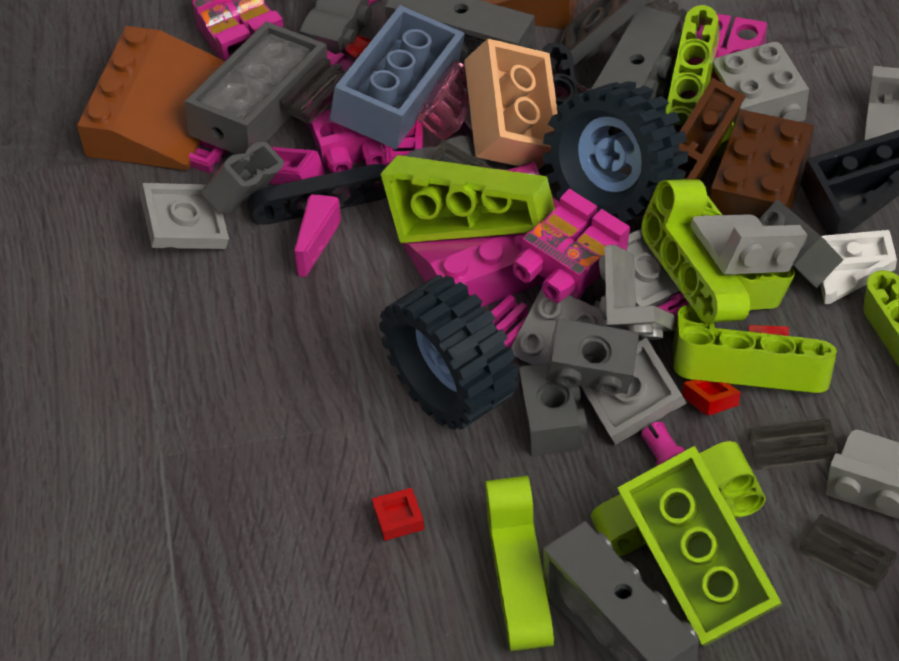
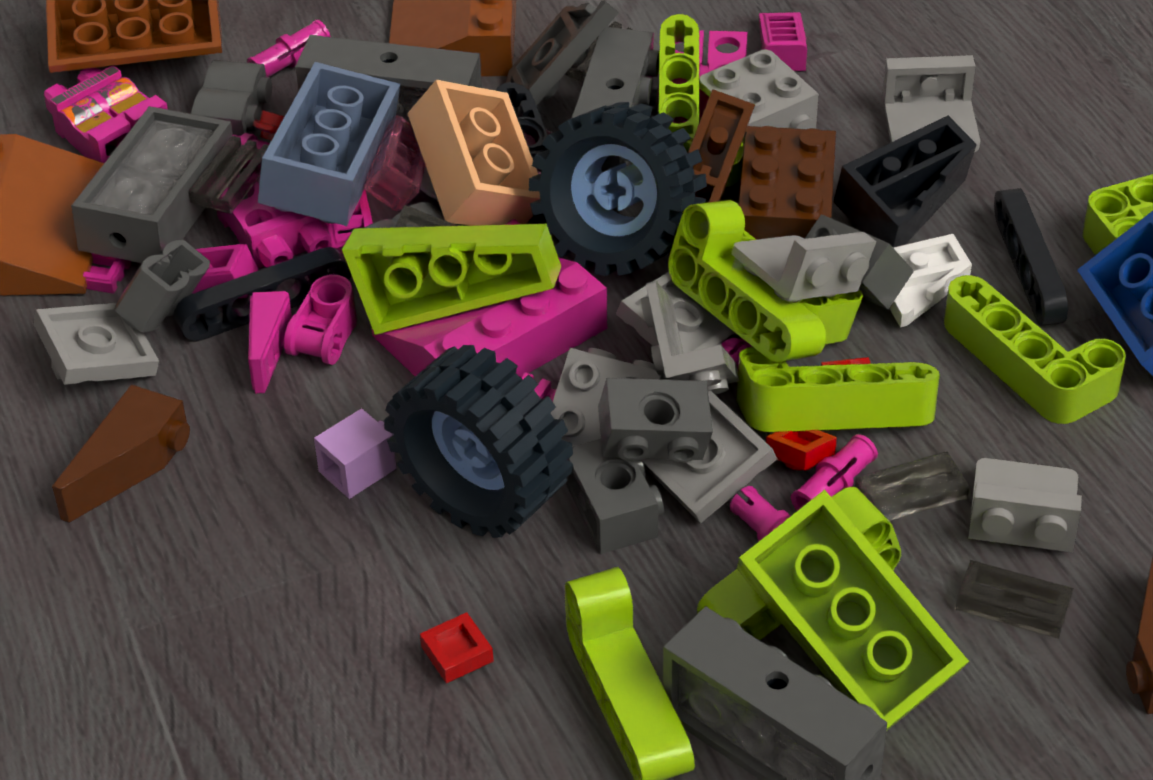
camera: 15 degrees left, 5 degrees down
(185, 309) = (124, 450): none -> reddish brown slope
(358, 341) = (354, 453): none -> lavender brick
(362, 225) = (323, 320): none -> dark pink piece
(569, 247) = (594, 299): dark pink hips -> none
(751, 412) = (844, 465): none -> dark pink pin
(800, 30) = (784, 37): none -> dark pink slope

